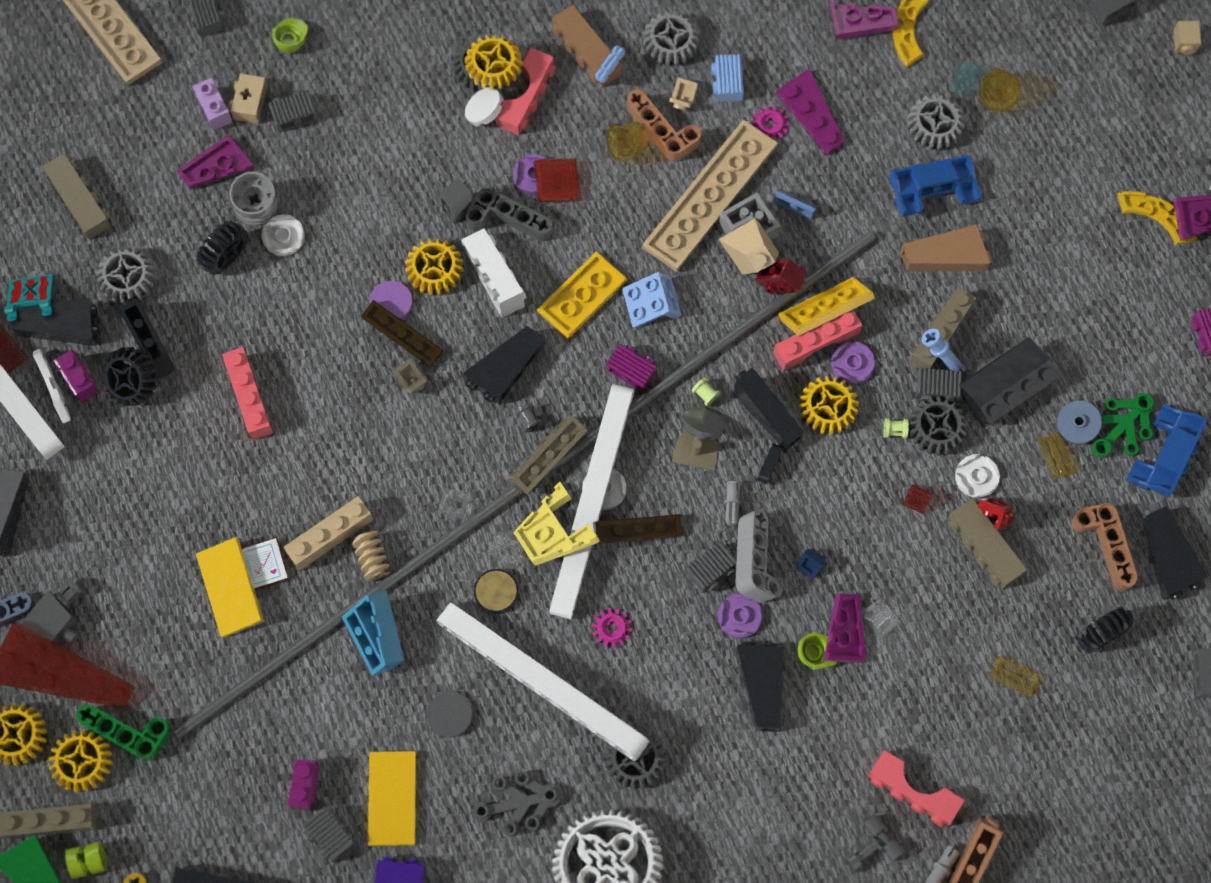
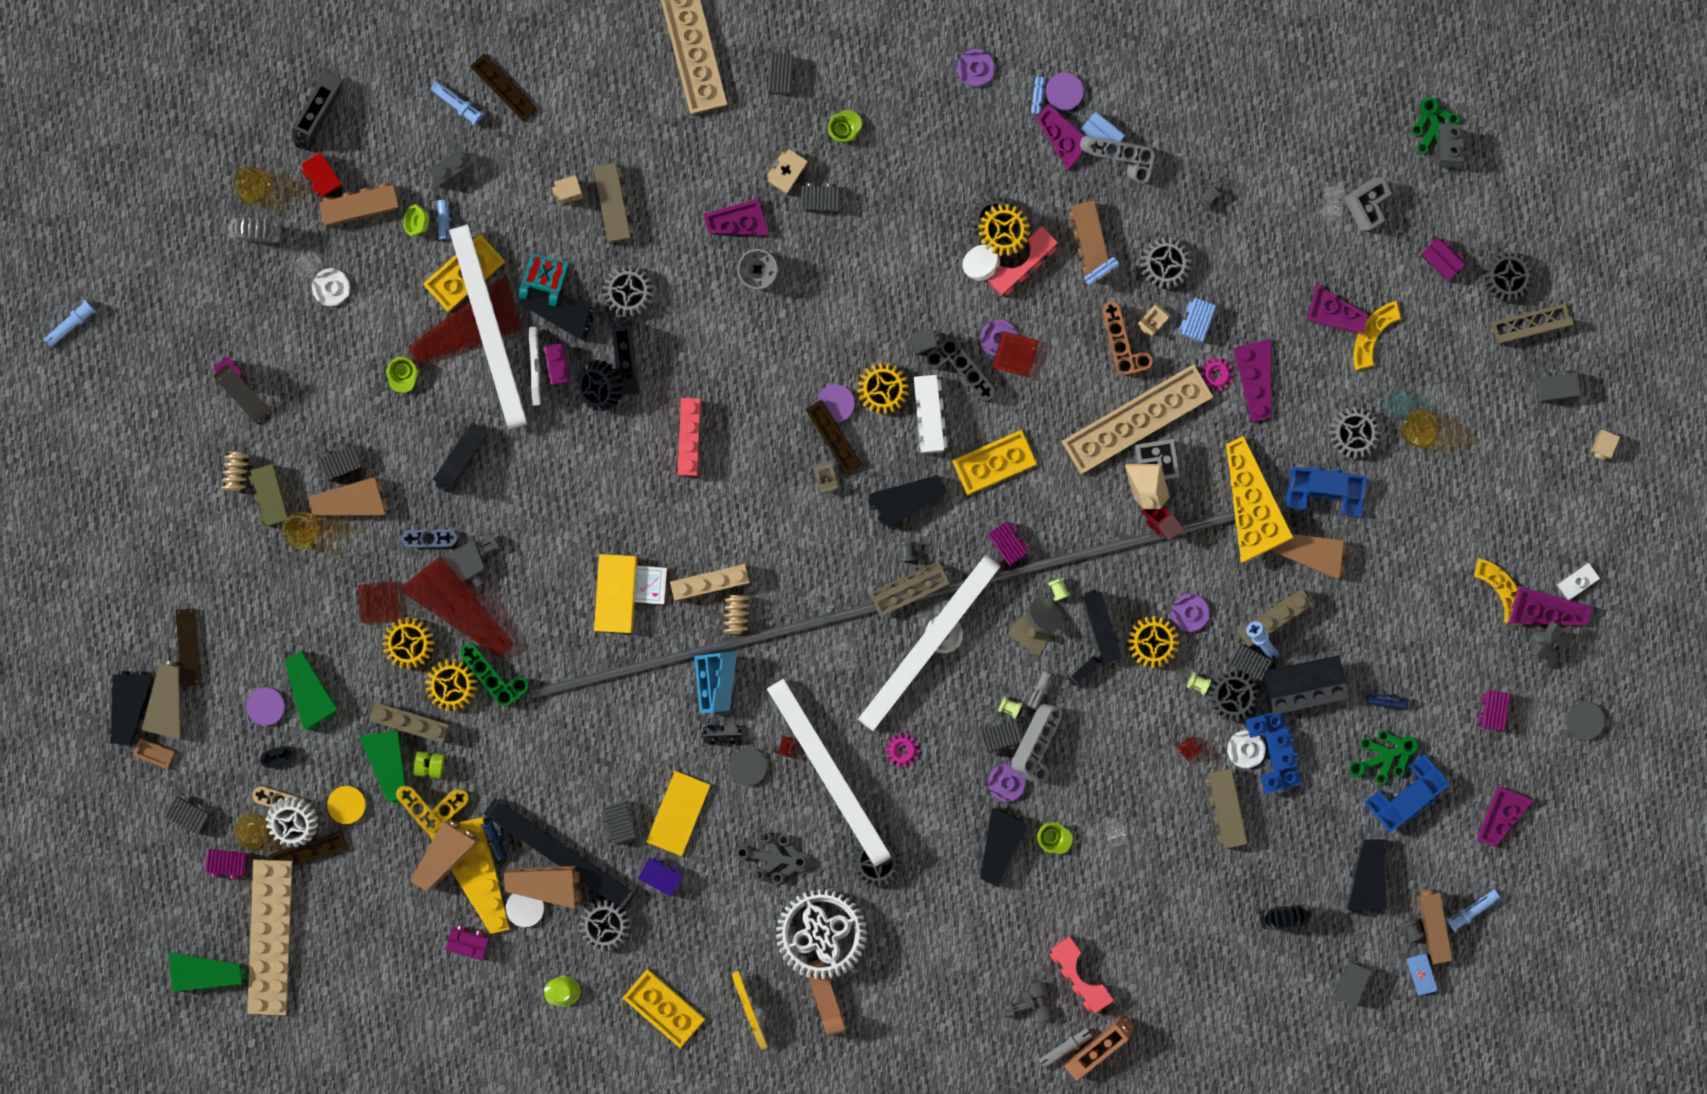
camera: 25 degrees right, 15 degrees up
(23, 198) = (567, 190): none -> tan brick
(212, 104) = (755, 165): lavender brick -> none
(222, 247) = (715, 302): black gear -> none
(282, 241) = (773, 313): white tile -> none
(303, 785) = (614, 776): magenta brick -> none
(416, 688) = (730, 735): none -> black hinge
(483, 674) = (786, 746): none -> clear red bush
(496, 591) = (823, 683): pearl gold tile -> none
(545, 537) = (878, 655): light yellow wing -> none
(626, 141) = (1087, 344): clear yellow helmet -> none
(638, 529) = (955, 681): dark brown tile -> none
(651, 299) = (1049, 491): light blue bracket -> none
(708, 533) = (1010, 707): none -> yellowish green bush
(795, 204) = (1205, 455): medium blue slope -> none
(798, 348) = (1169, 582): coral arch -> none
(811, 563) = (1080, 765): dark blue tile -> none
(826, 306) = (1188, 558): yellow tile -> none
(846, 633) = (1083, 831): magenta wing -> none
(875, 232) = (1256, 511): none -> yellow wing
(994, 507) = (1247, 786): red bracket -> none
(1010, 684) = (1189, 908): clear yellow tile -> none
(1012, 460) = (1280, 751): none -> blue bracket
(1049, 438) = (1317, 764): clear yellow tile -> none
(1076, 433) = (1356, 747): sand blue plate -> none
(1098, 367) = (1386, 701): none -> dark blue pin
(1109, 547) = (1322, 852): nougat beam -> none

